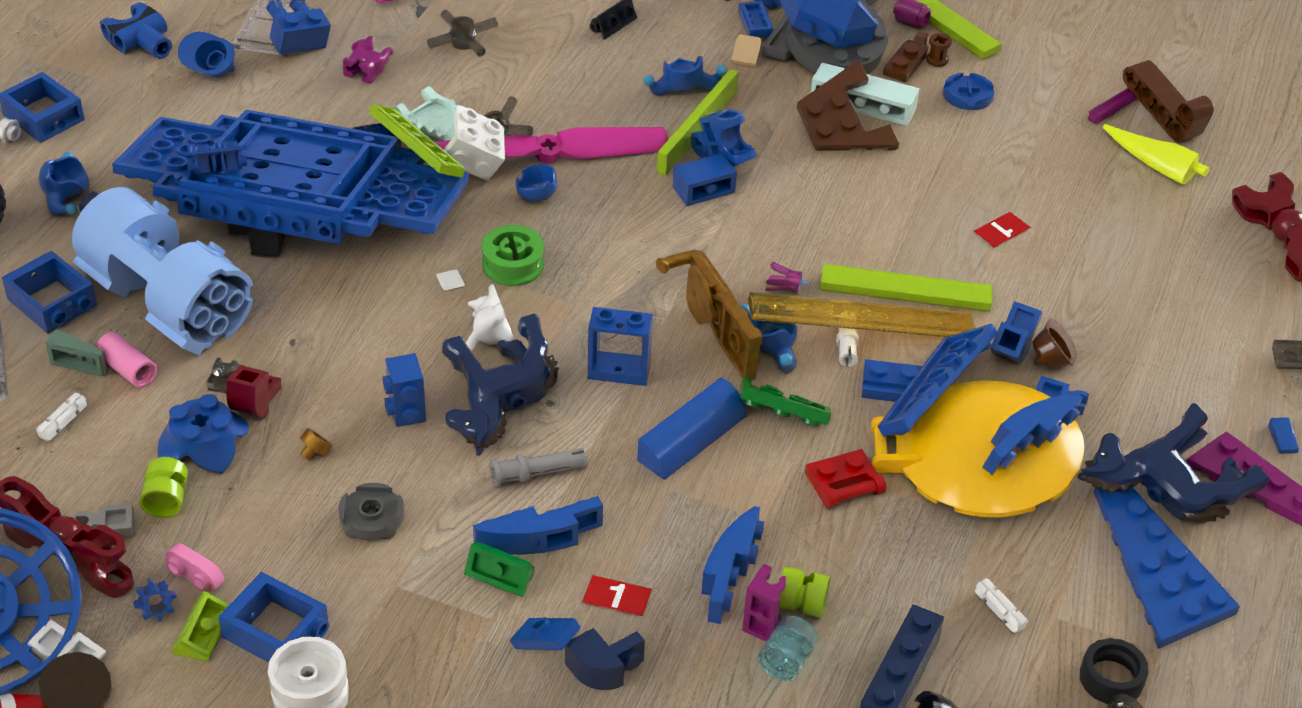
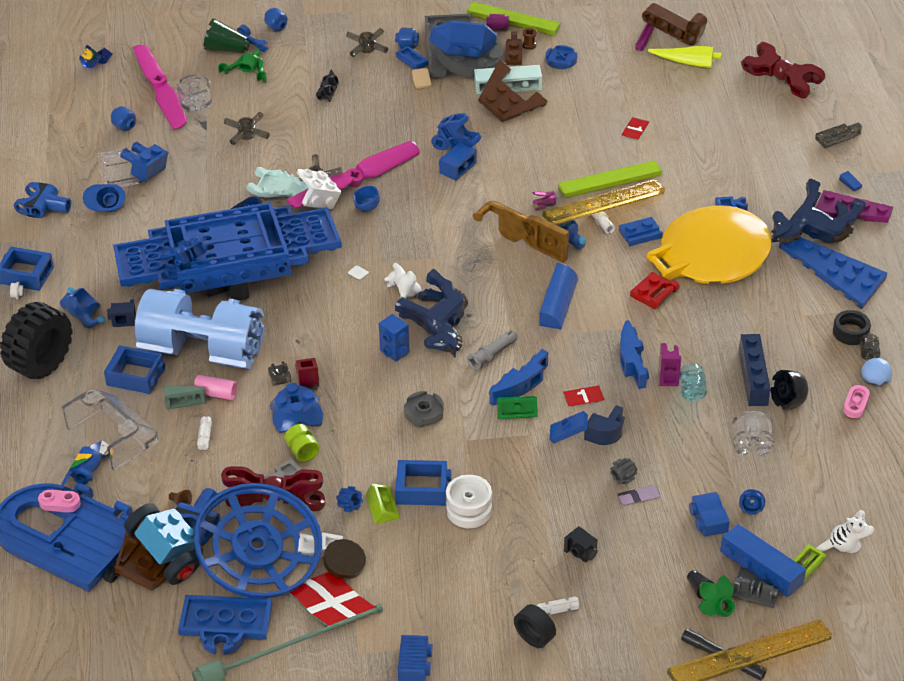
camera: 25 degrees left, 0 degrees up
(194, 567) = (355, 475): bright pink plate -> none
(314, 443) = (363, 387): pearl gold tile -> none
(366, 60) = (201, 166): magenta animal -> none
(417, 140) = (283, 199): lime tile -> none
(498, 255) = (385, 244): bright green wheel -> none
(603, 364) = (501, 278): blue window -> none
(680, 141) = (427, 130): lime tile -> none
(684, 77) = (400, 106): blue piece -> none
(770, 396) = (597, 265): green wing -> none
(804, 591) = (686, 350): lime wheel -> none
(935, 376) = (666, 218): blue wing -> none
(1001, 605) = (776, 319): white axle -> none
(1016, 334) = (688, 179): blue brick -> none
(1031, 426) = (740, 224): blue slope -> none
(1054, 346) = (710, 181): reddish brown piece -> none

